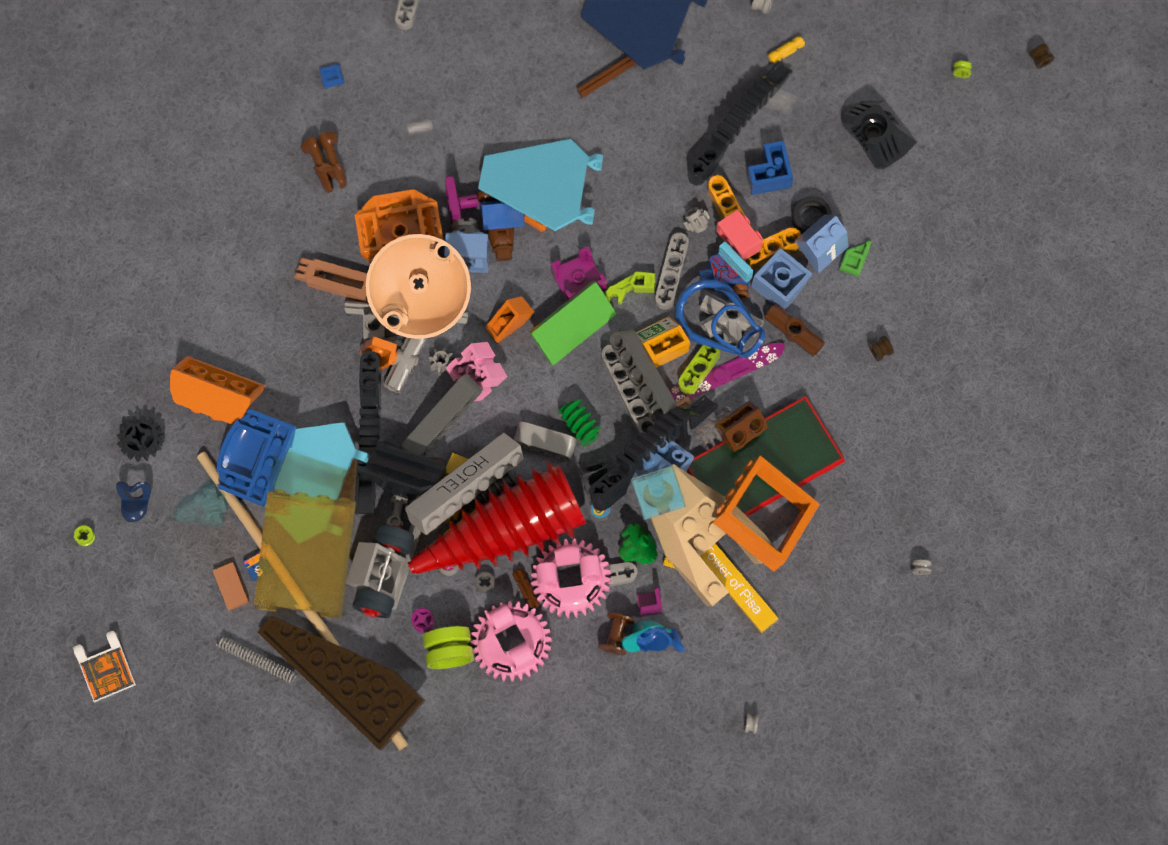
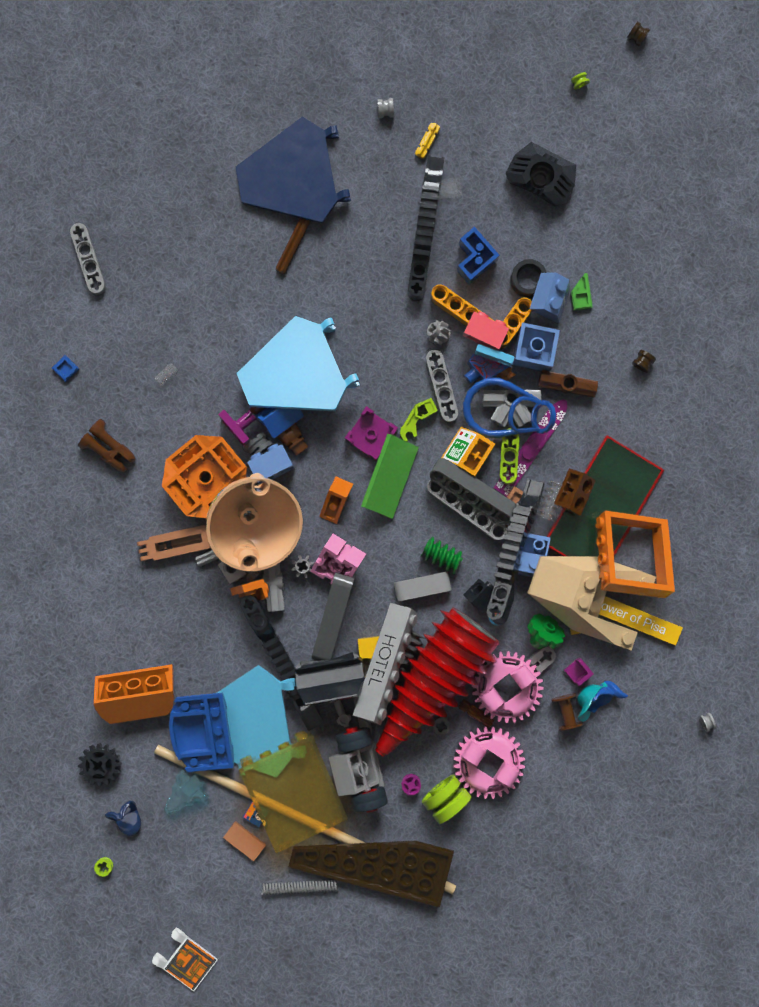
camera: 35 degrees left, 15 degrees up
(658, 492) = (544, 588): clear light blue tile -> none

